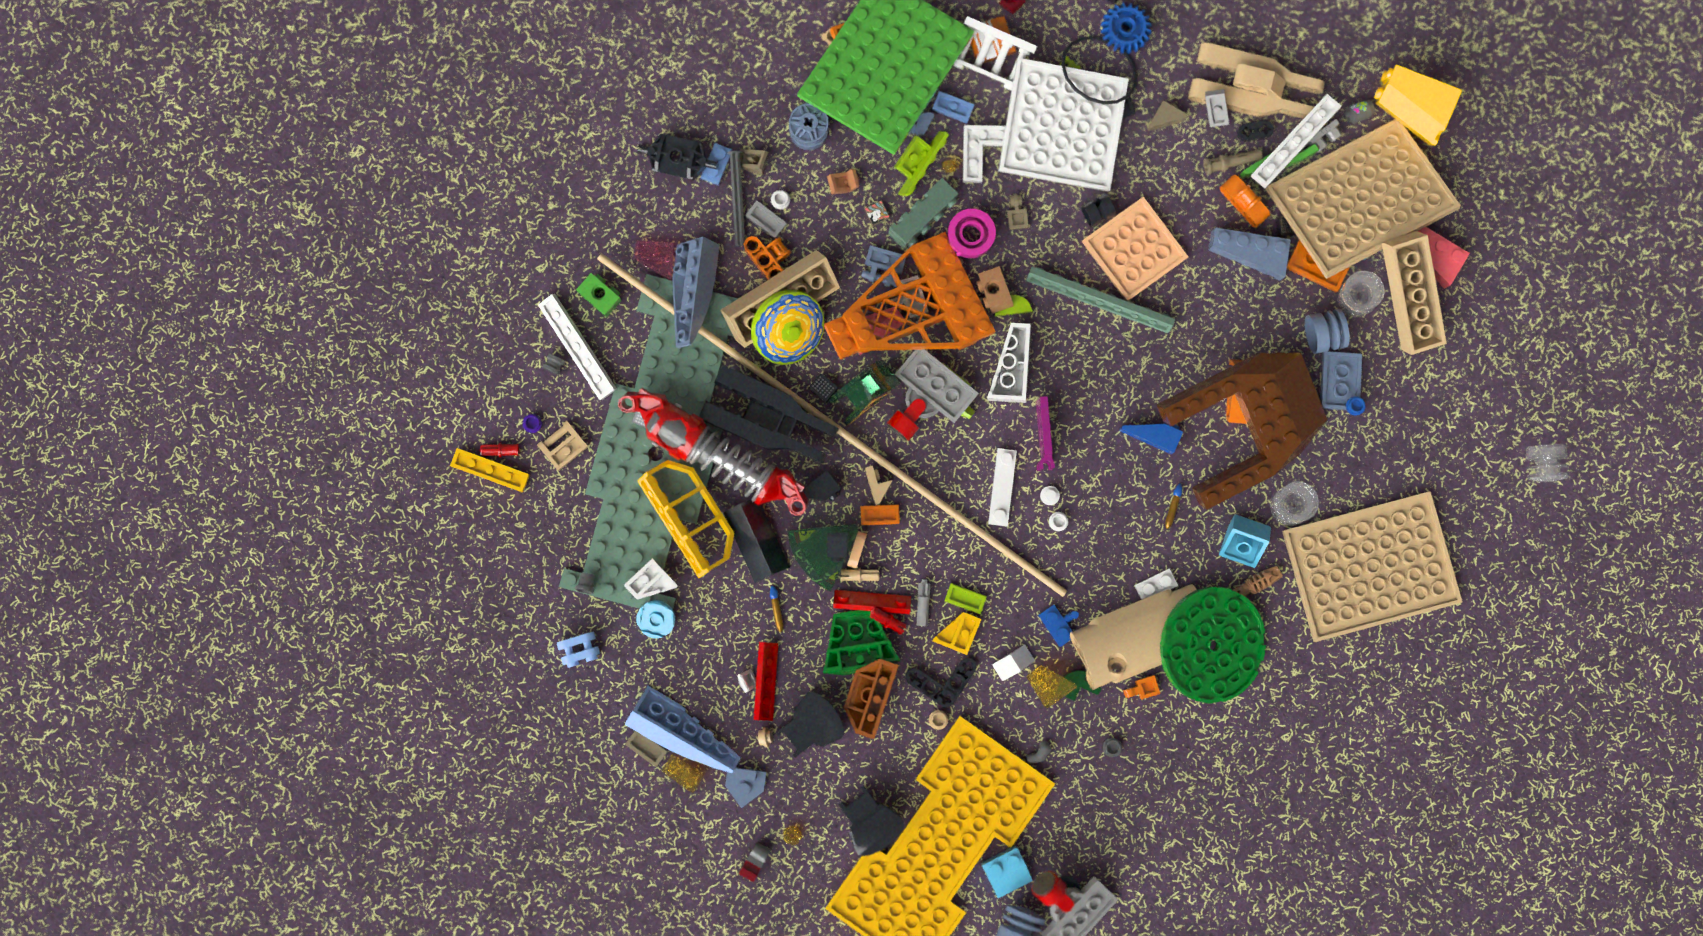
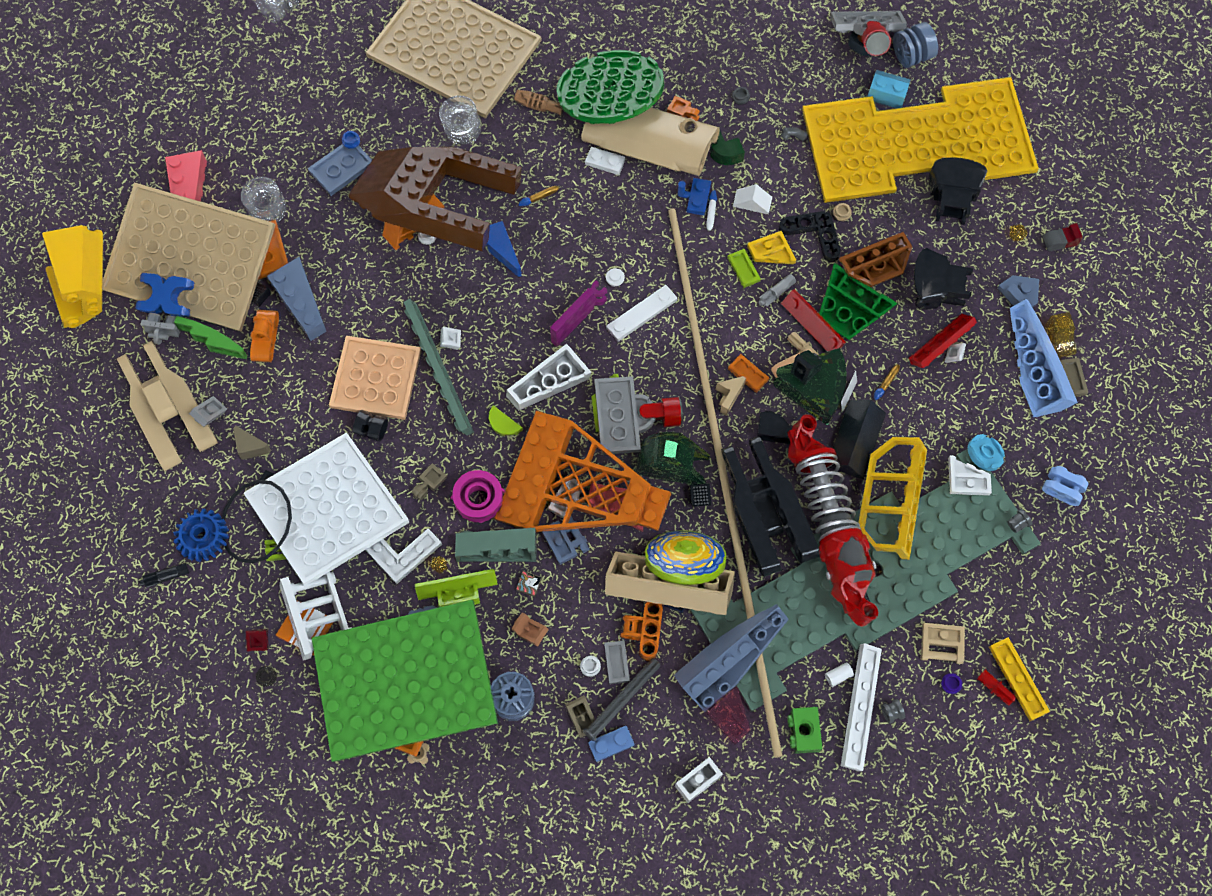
camera: 125 degrees left, 15 degrees down
(611, 355) = (839, 674): none -> white piece
(636, 192) = (698, 780): none -> white brick
(691, 161) = (624, 766): black plate -> none
(765, 737) = (978, 306): tan plate -> none
(795, 570) = (849, 391): none -> white sticker
(887, 620) = (814, 299): red axle -> none
(953, 107) = (387, 602): medium blue plate -> none
(994, 279) = (503, 430): medium nougat brick -> none
(1037, 625) = (711, 210): none -> white piece
(1049, 685) = (745, 161): clear yellow wing -> none
(1058, 521) = (627, 256): white plate -> none
(1115, 330) = (450, 338): none -> white tile
(1224, 162) = (247, 375): dark tan pin -> none
(1245, 541) = (516, 131): medium azure slope -> none
(1254, 126) = (198, 378): black beam -> none
(1296, 141) = (184, 333): white plate -> none
(1327, 331) = (313, 199): sand blue wheel -> none
(1343, 154) = (165, 295): none -> blue piece
(1360, 111) = (118, 317): dark grey brick -> none
(1414, 292) = (230, 163): tan brick -> none

